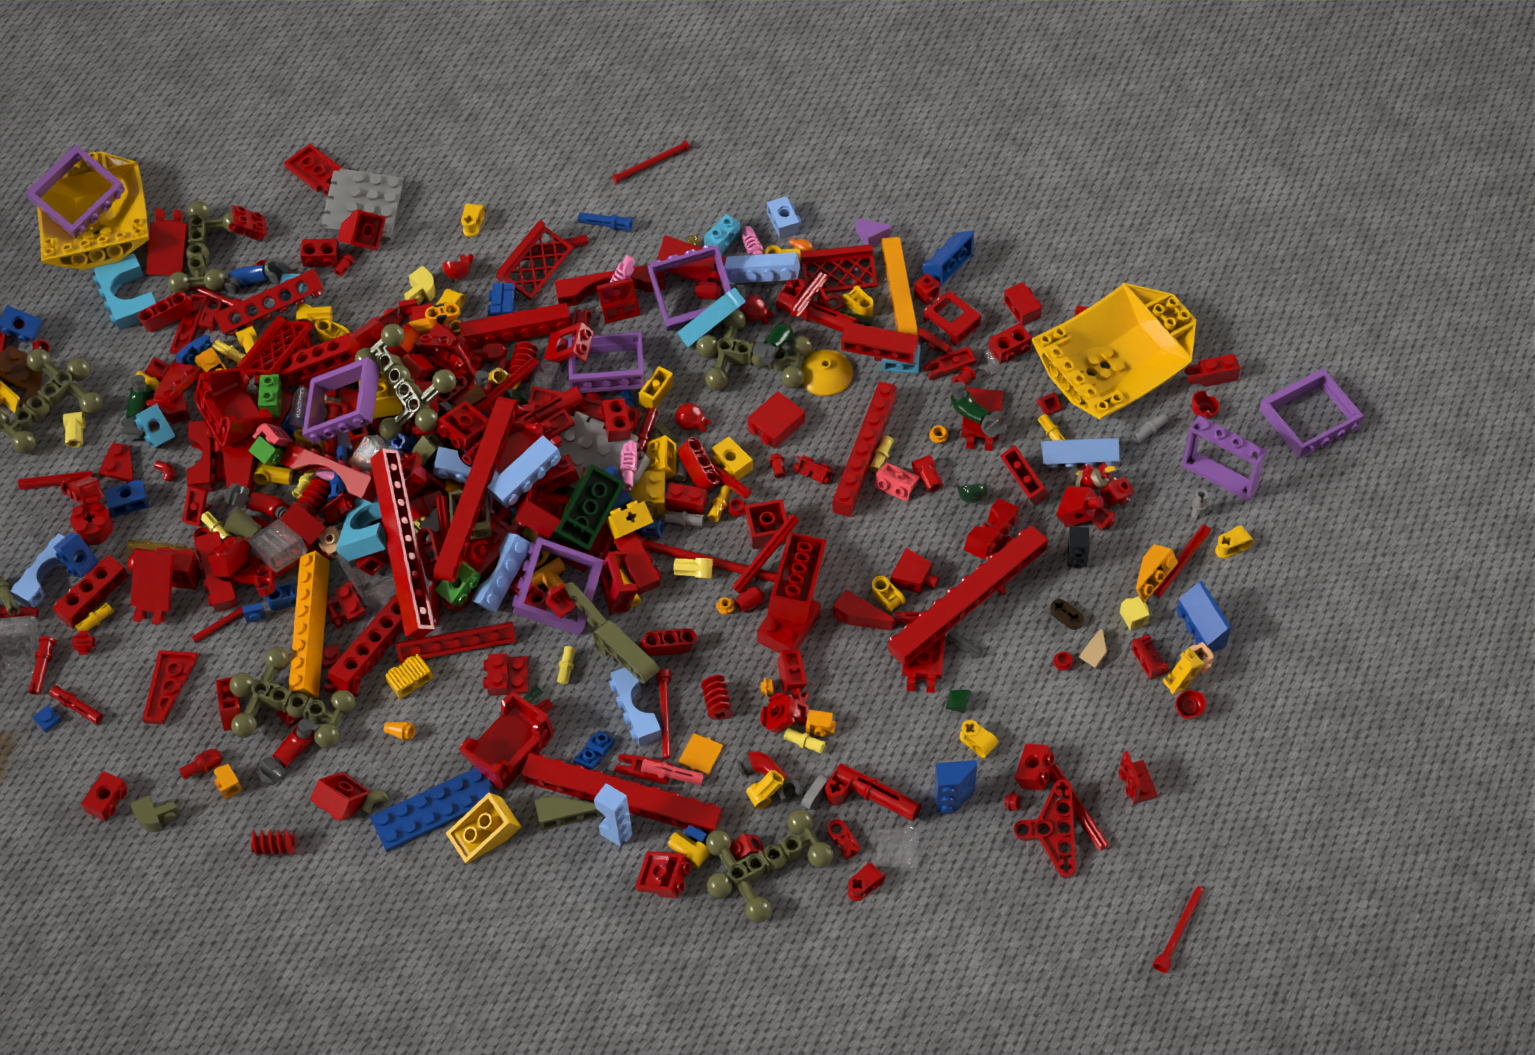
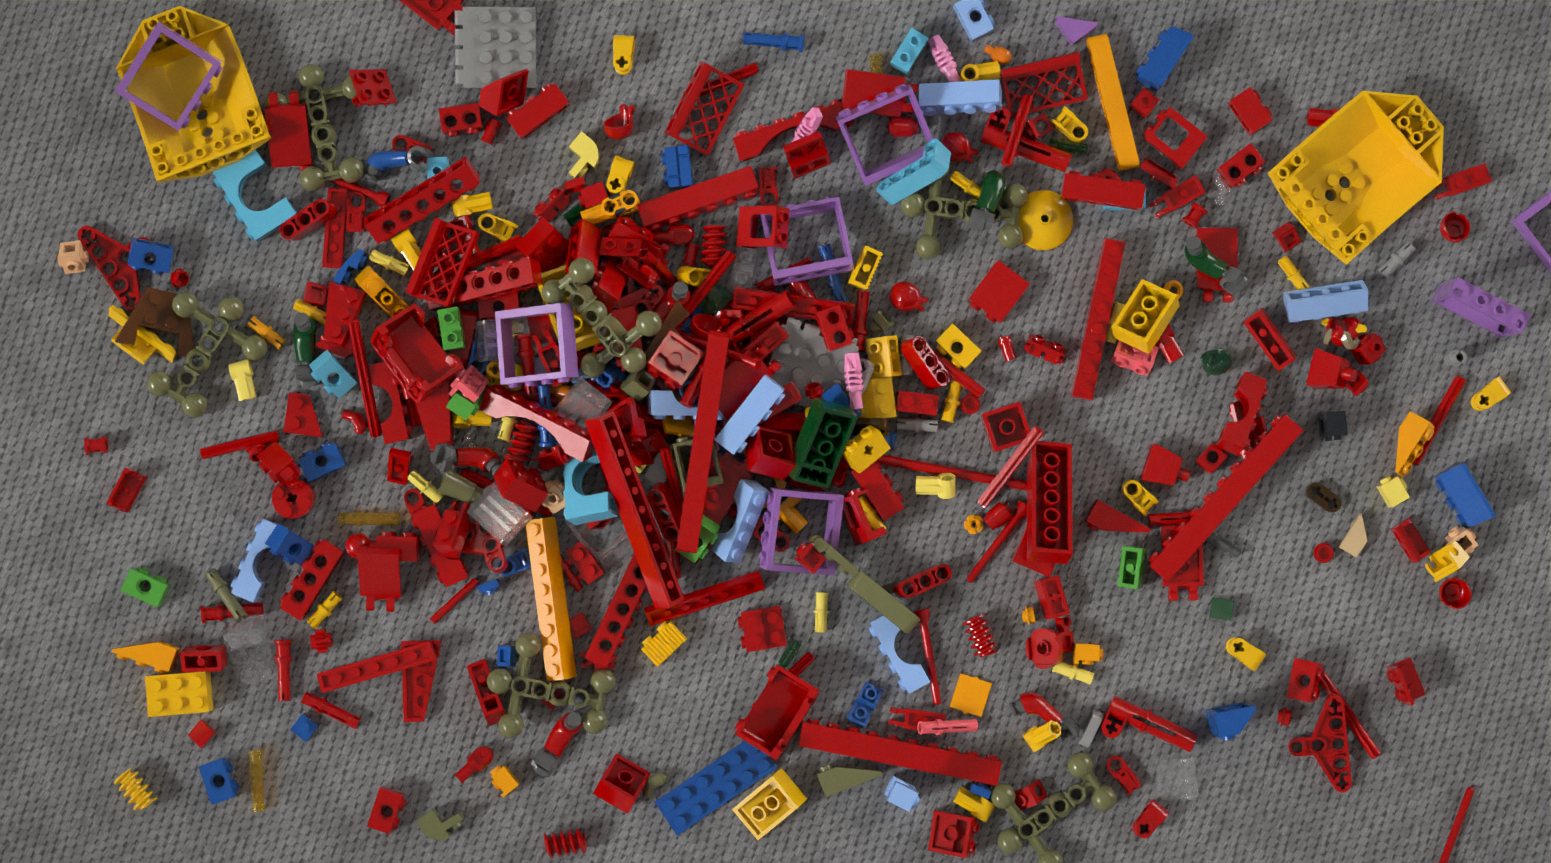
camera: 10 degrees left, 30 degrees up
(106, 395) = (266, 333): none -> light orange pin
(129, 667) = (376, 666): none -> red plate
(182, 432) = (364, 378): none -> red axle
(257, 669) = (506, 656): none -> blue plate
(388, 252) = (537, 110): none -> red brick
(401, 730) = (667, 704): light orange cone -> none
(743, 626) = (1020, 511): none -> red piece
(754, 334) = (968, 186): none -> yellow axle
(873, 650) = (1132, 567): none -> bright green brick
(908, 443) = (1145, 316): none -> yellow brick
(960, 561) = (1203, 462): none -> red brick

